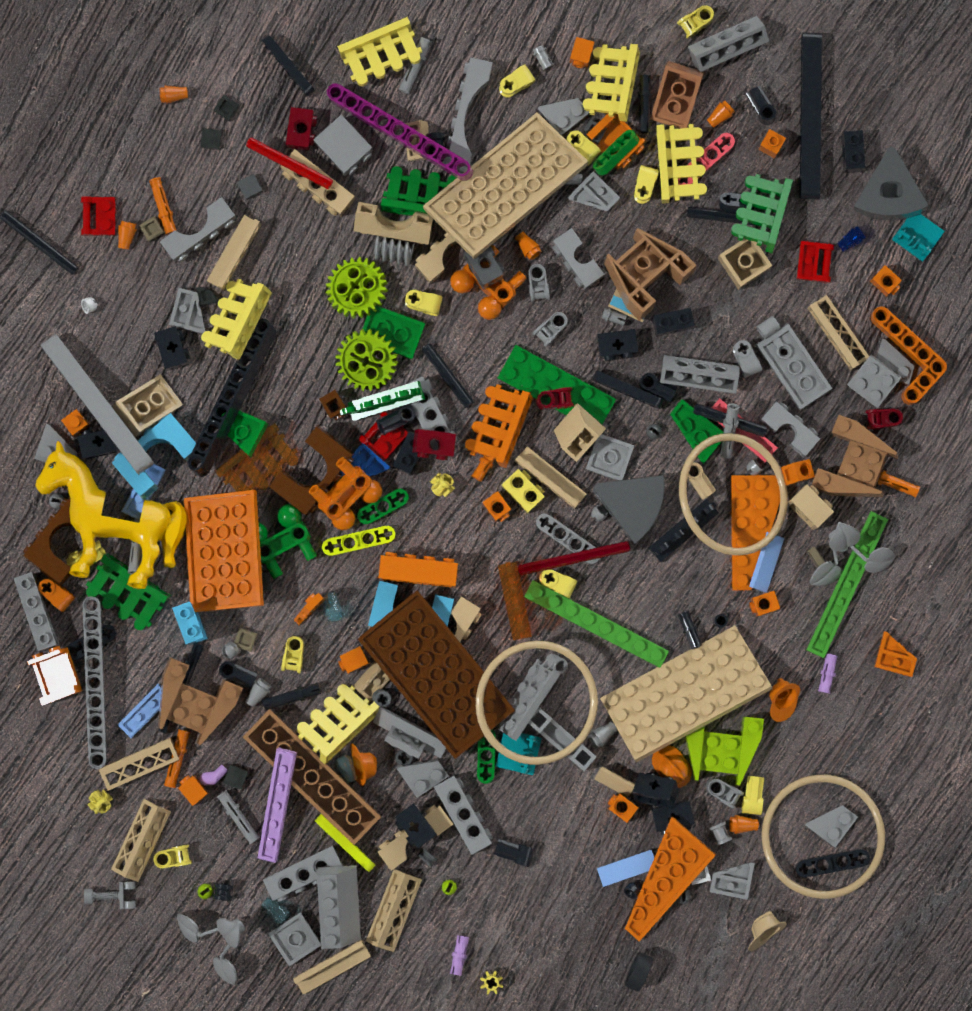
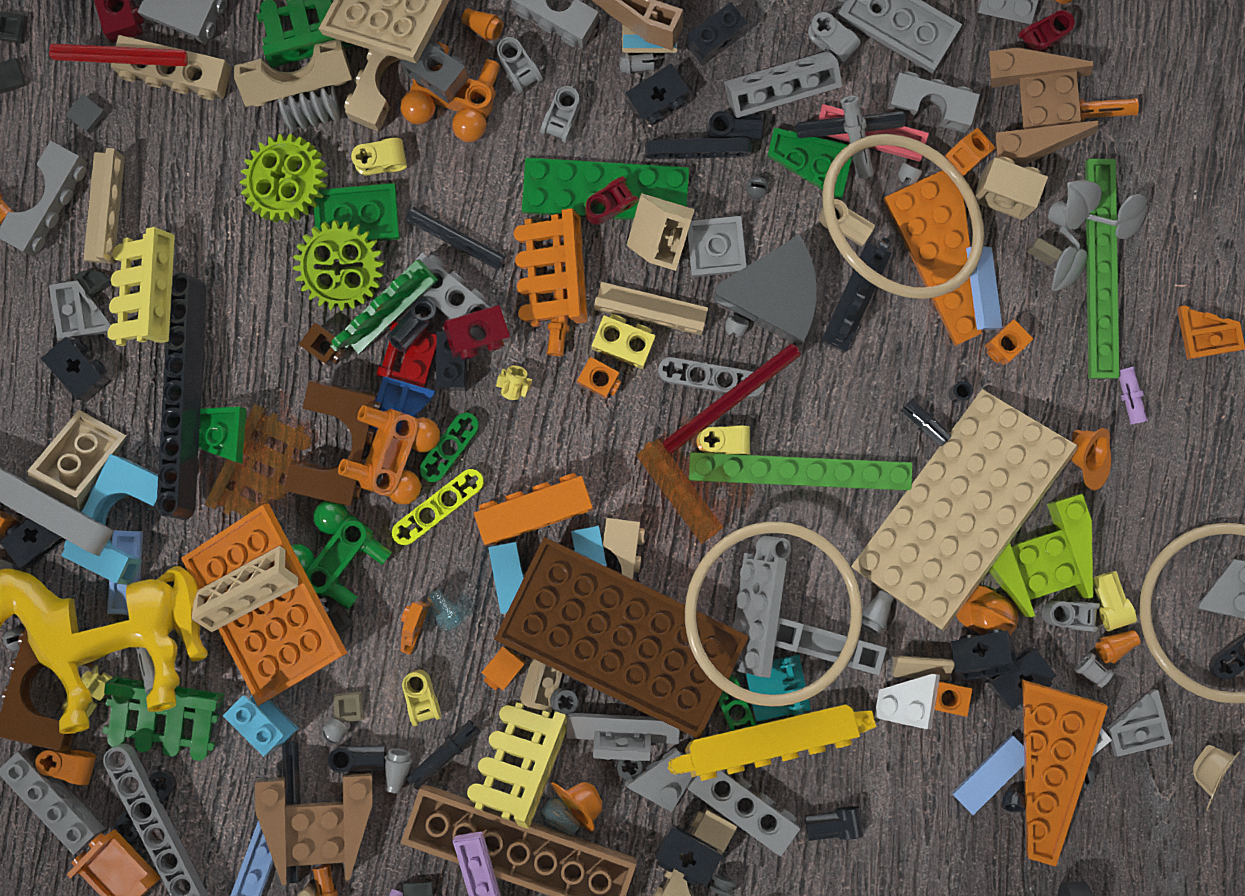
camera: 15 degrees left, 0 degrees up
(214, 540) = (243, 595): none -> tan fence
(499, 781) = (772, 740): none -> yellow hinge
(596, 797) = (909, 702): none -> white wing

